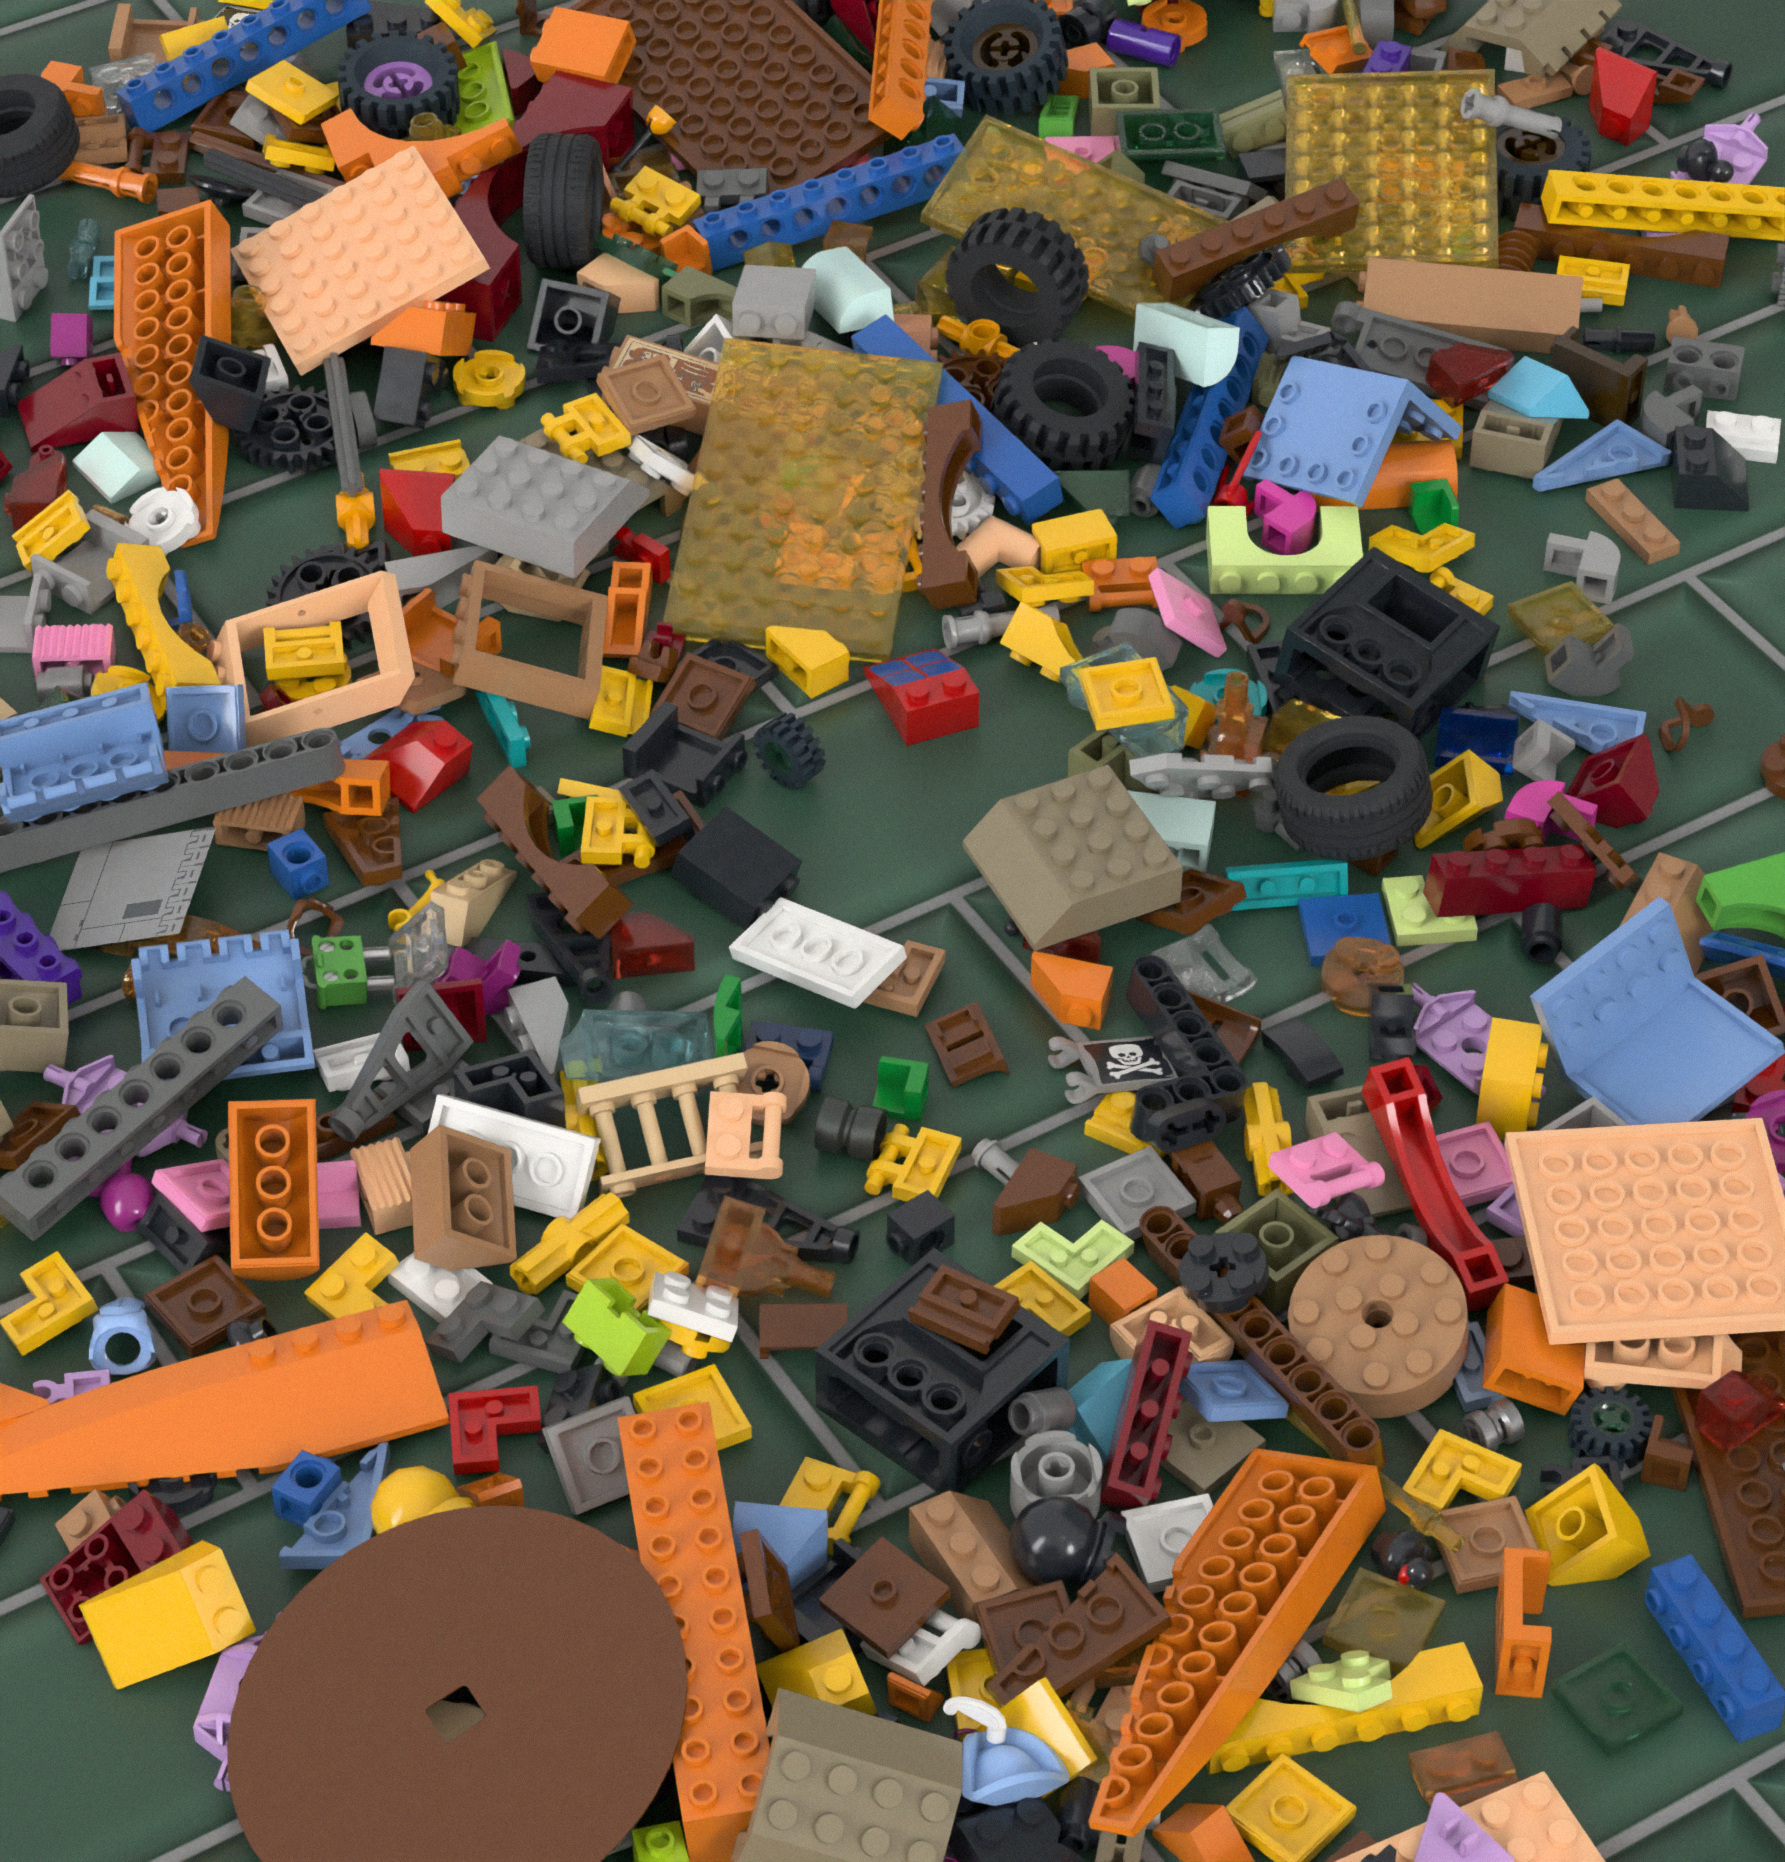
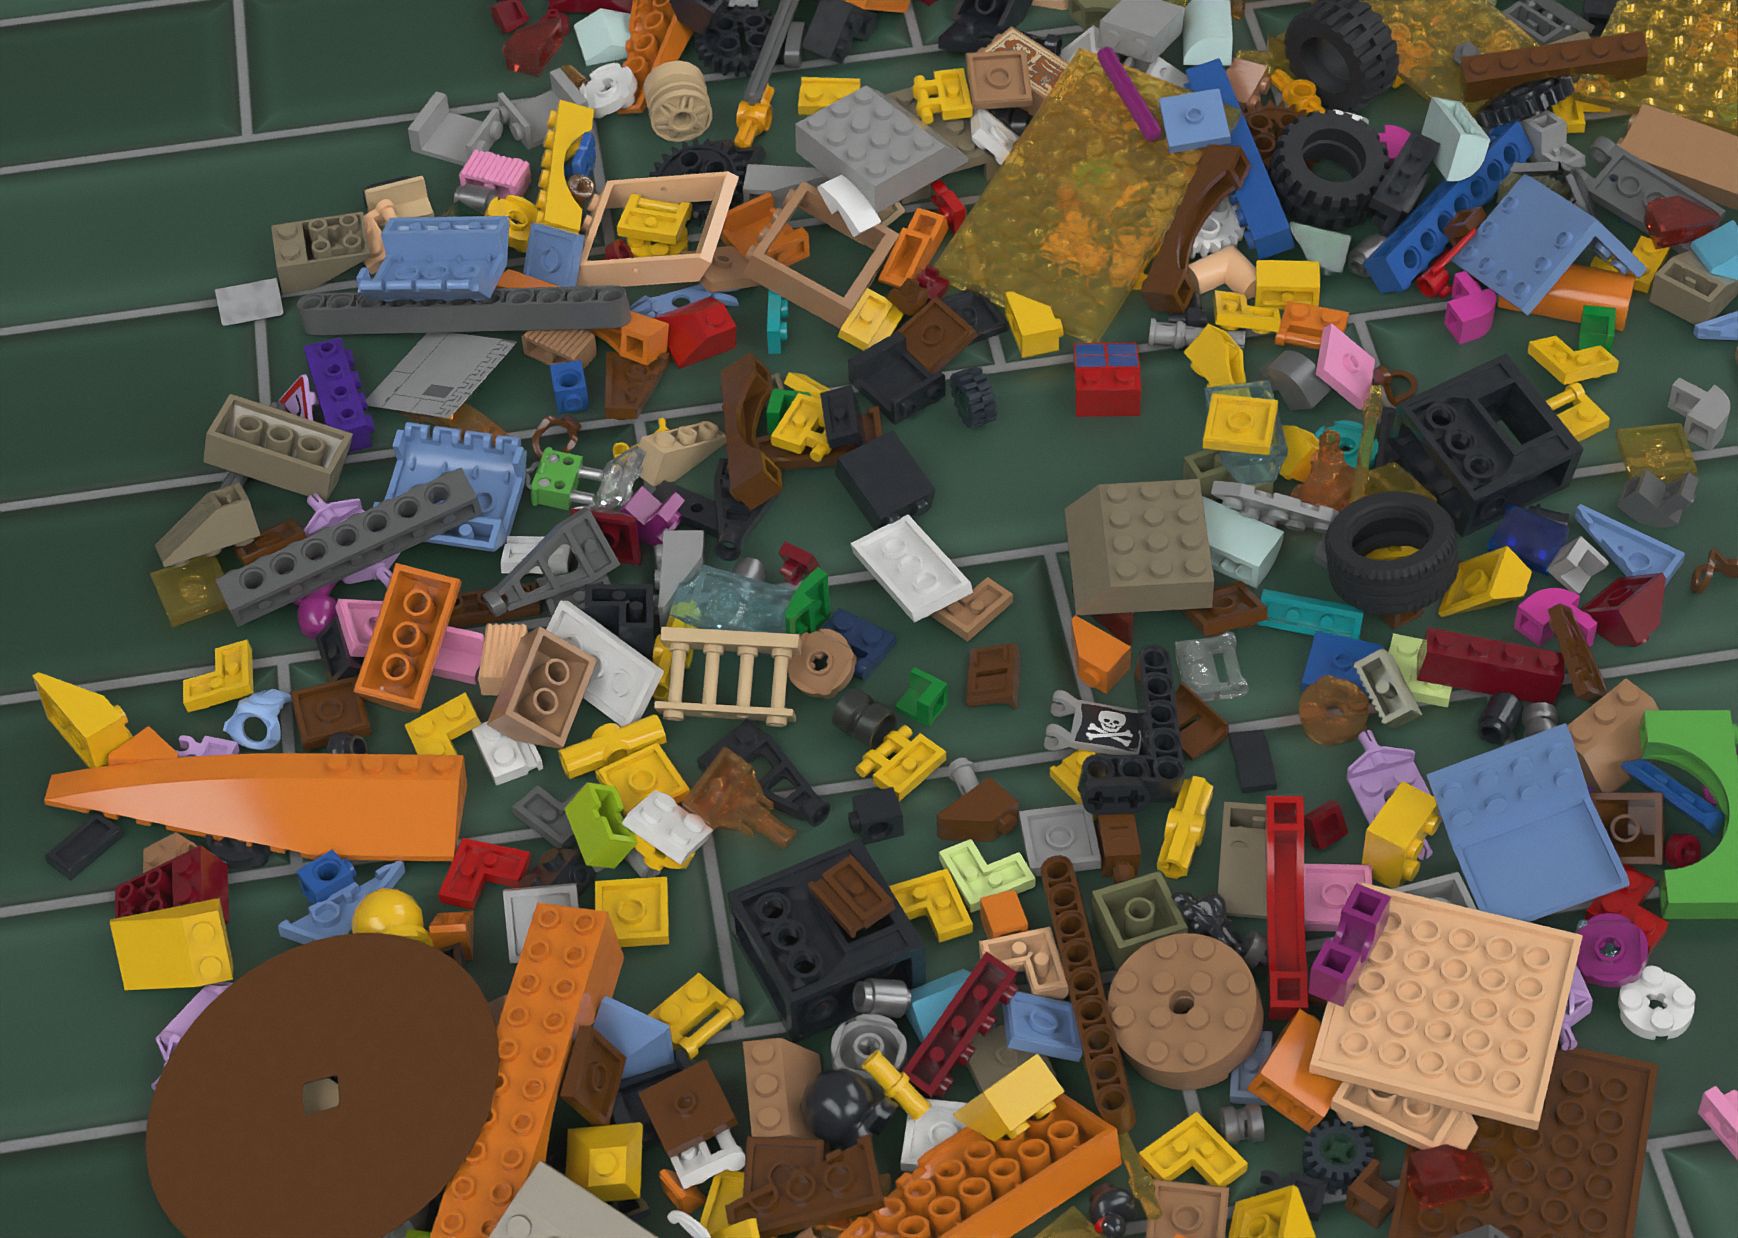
camera: 25 degrees right, 5 degrees up
(52, 530) = (526, 76): yellow plate -> none
(260, 512) = (677, 101): none -> tan wheel
(414, 509) = (785, 113): red slope -> none
(475, 388) = (894, 38): yellow plate -> none
(483, 1311) = (521, 781): dark grey plate -> none
(535, 566) = (852, 205): none -> white slope
(649, 946) = (788, 520): clear red slope -> none
(678, 983) = (796, 563): none -> dark red tile
(731, 1131) = (765, 696): light nougat plate -> none
(798, 1325) = (740, 865): reddish brown hinge -> none
(811, 374) = (1129, 94): none -> magenta axle
(899, 385) = (1194, 120): none -> medium blue plate
(1110, 1497) = (896, 1085): none -> yellow pin
(1219, 1251) = (1075, 910): black plate -> none
(1240, 653) = (1371, 412): none -> clear yellow bar
(1244, 568) = (1412, 340): yellowish green arch -> none
(1245, 1474) = (1011, 1101): none -> yellow slope
(1325, 1169) = (1201, 860): bright pink plate -> none
(1390, 1021) = (1332, 757): black brick -> none
(1415, 933) = (1387, 689): none -> olive brick
(1507, 834) = (1503, 629): reddish brown plate -> none
(1537, 1194) = (1345, 956): none -> magenta arch
(1585, 930) = (1535, 717): none -> flat silver wheel

